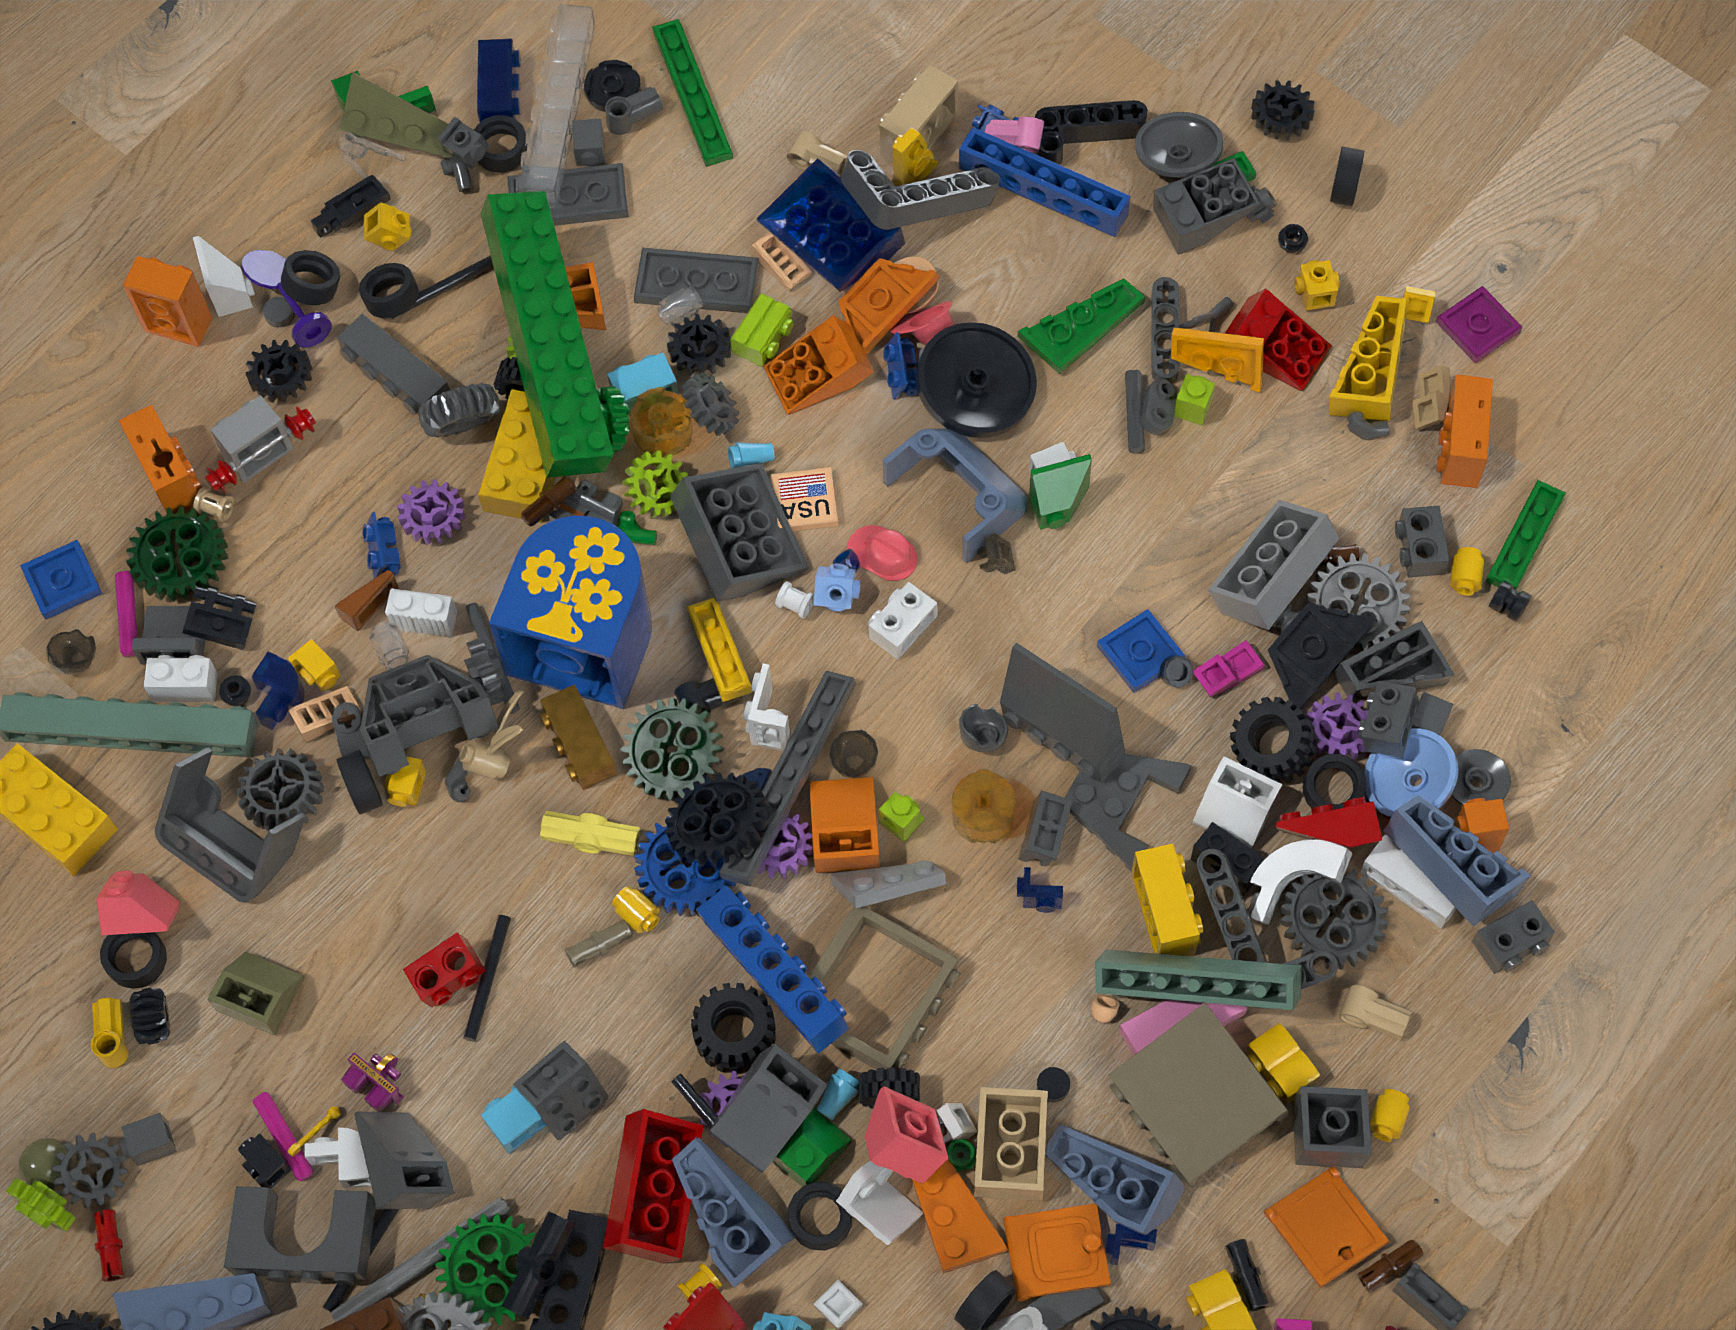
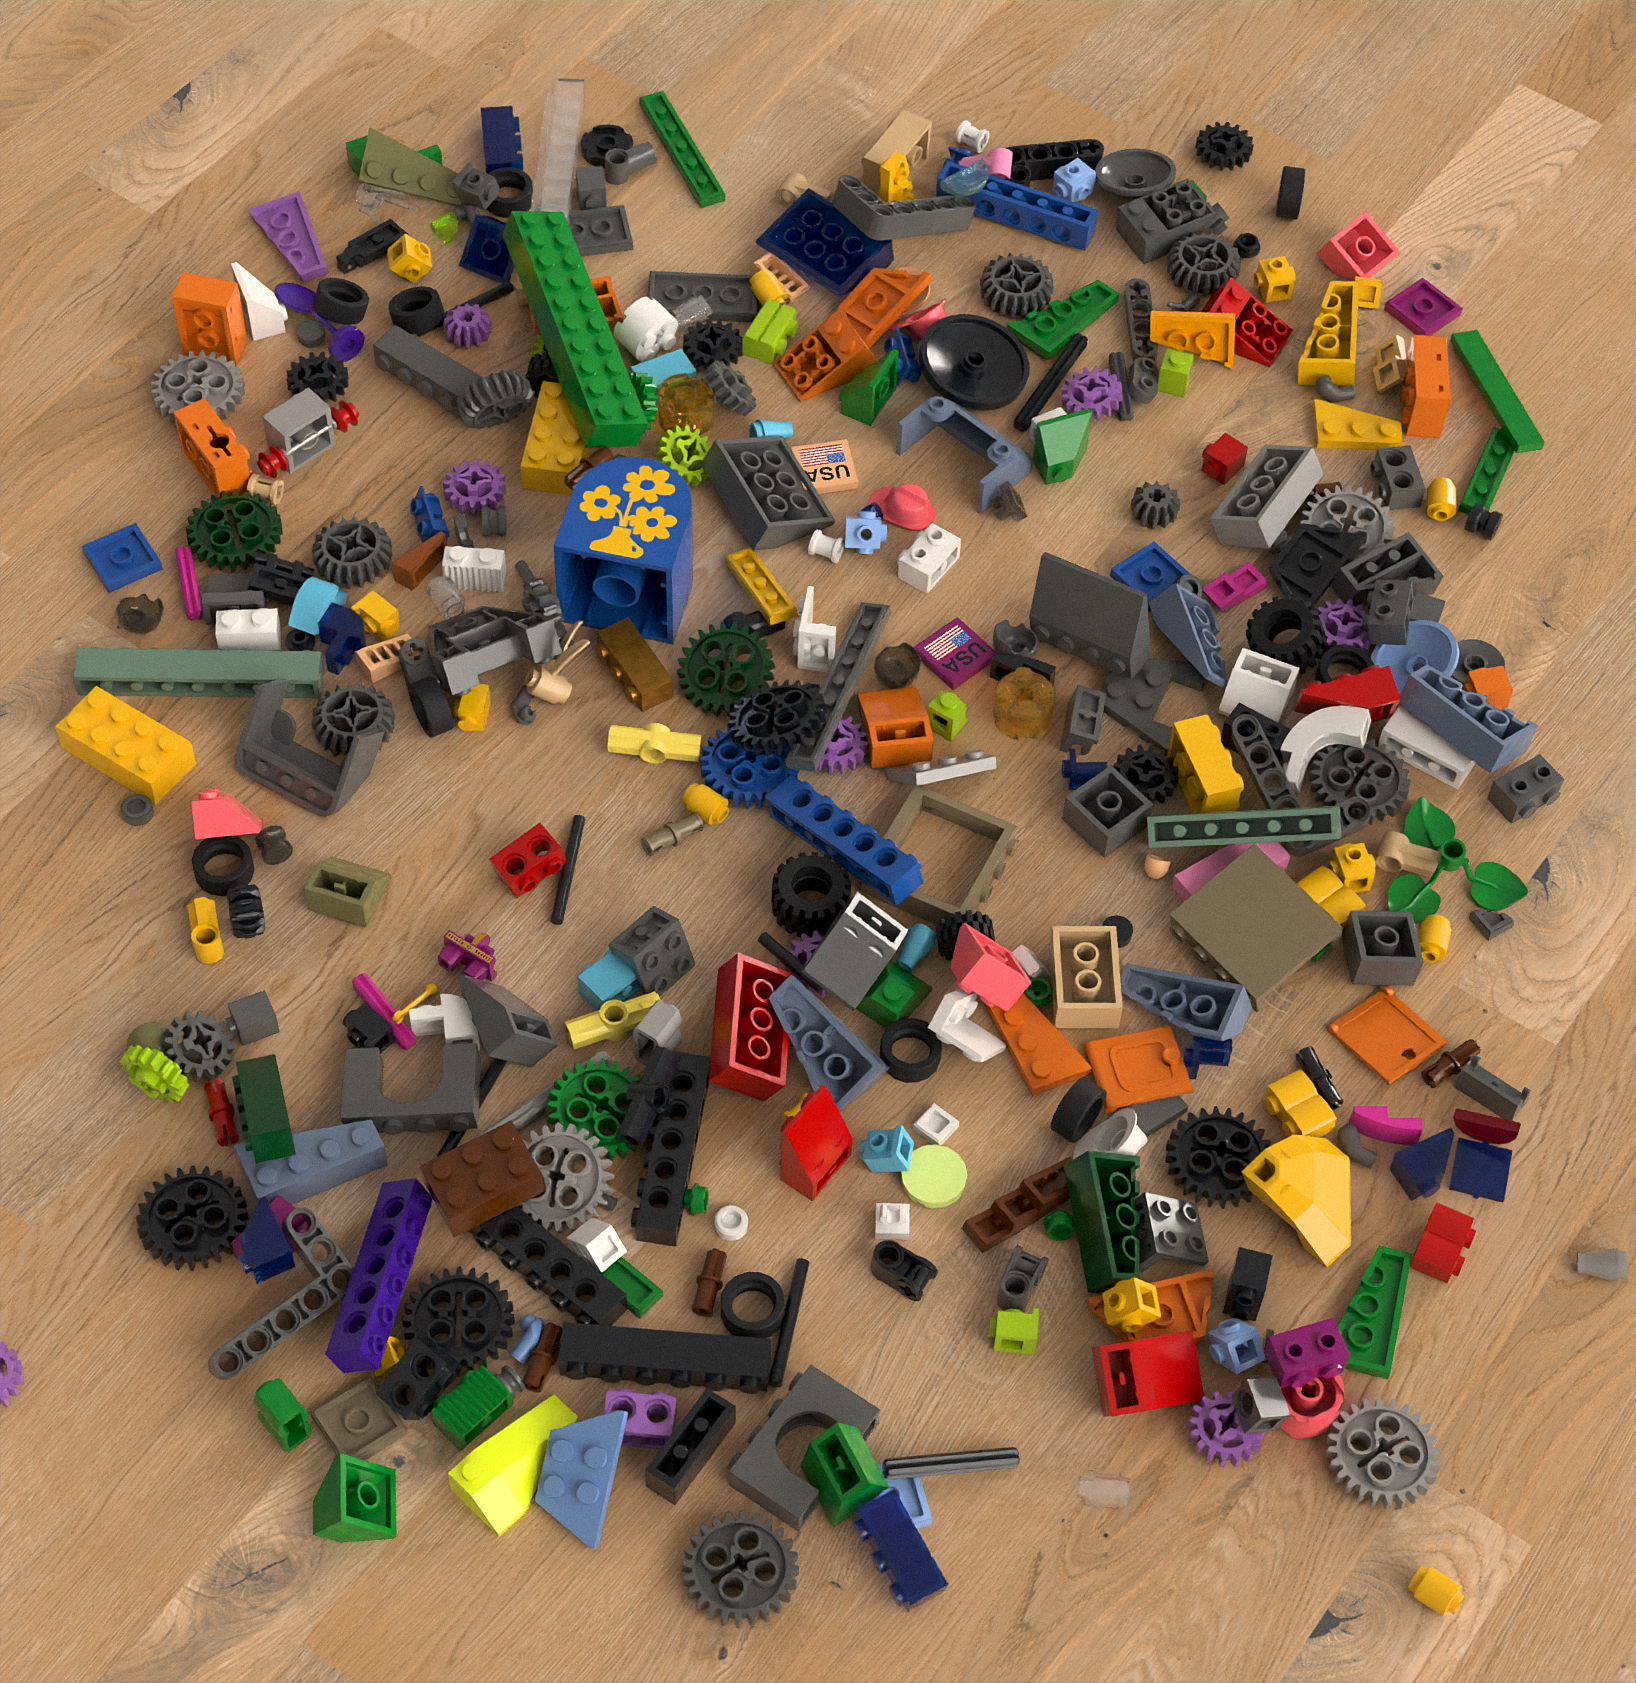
camera: 10 degrees left, 10 degrees down
(53, 883) = (137, 810): none -> dark grey tile
(145, 1255) = (263, 1109): none -> dark green brick
(154, 376) = (196, 379): none -> light grey gear
(186, 935) = (274, 845): none -> clear smoke wheel
(249, 649) = (312, 602): none -> medium azure brick
(268, 186) = (291, 232): none -> medium lavender wing
(303, 600) = (350, 546): none -> dark grey gear
(415, 569) = (461, 531): none -> dark grey tile
(431, 183) = (445, 227): none -> clear neon green tile
(441, 310) = (467, 325): none -> medium lavender gear
(447, 554) = (494, 521): none -> dark grey wheel
(464, 217) = (487, 251): none -> clear blue slope
(494, 1169) = (597, 1027): none -> light yellow piece
(557, 1187) = (657, 1028): none -> light grey brick
(629, 326) = (646, 329): none -> white brick
(765, 278) = (767, 286): none -> yellow brick
(861, 409) = (870, 389): none -> green slope
(919, 736) = (955, 653): none -> magenta tile
(972, 760) = (1005, 664): none -> black slope
(991, 154) = (968, 180): none -> clear light blue tile
(1007, 88) = (972, 136): none -> white bush
(1049, 273) = (1016, 285): none -> dark grey gear
(1057, 944) = (1107, 811): none -> dark grey brick
(1058, 403) = (1050, 382): none -> black axle
(1092, 895) = (1149, 772): none -> black gear
(1098, 420) = (1092, 391): none -> medium lavender gear
(1110, 153) = (1074, 181): none -> light blue brick
(1148, 553) = (1155, 504): none -> dark grey gear
(1172, 719) = (1192, 629): none -> sand blue wedge
(1234, 509) = (1224, 458): none -> red brick
(1245, 271) = (1202, 262): none -> dark grey gear
(1312, 1025) = (1353, 866): none -> yellow brick
(1377, 1066) = (1432, 828): none -> green plant
(1382, 475) = (1353, 429): none -> yellow wing
(1414, 251) = (1358, 249): none -> coral slope
(1455, 1095) = (1490, 923): none -> dark grey tile
(1546, 436) = (1497, 391): none -> green tile

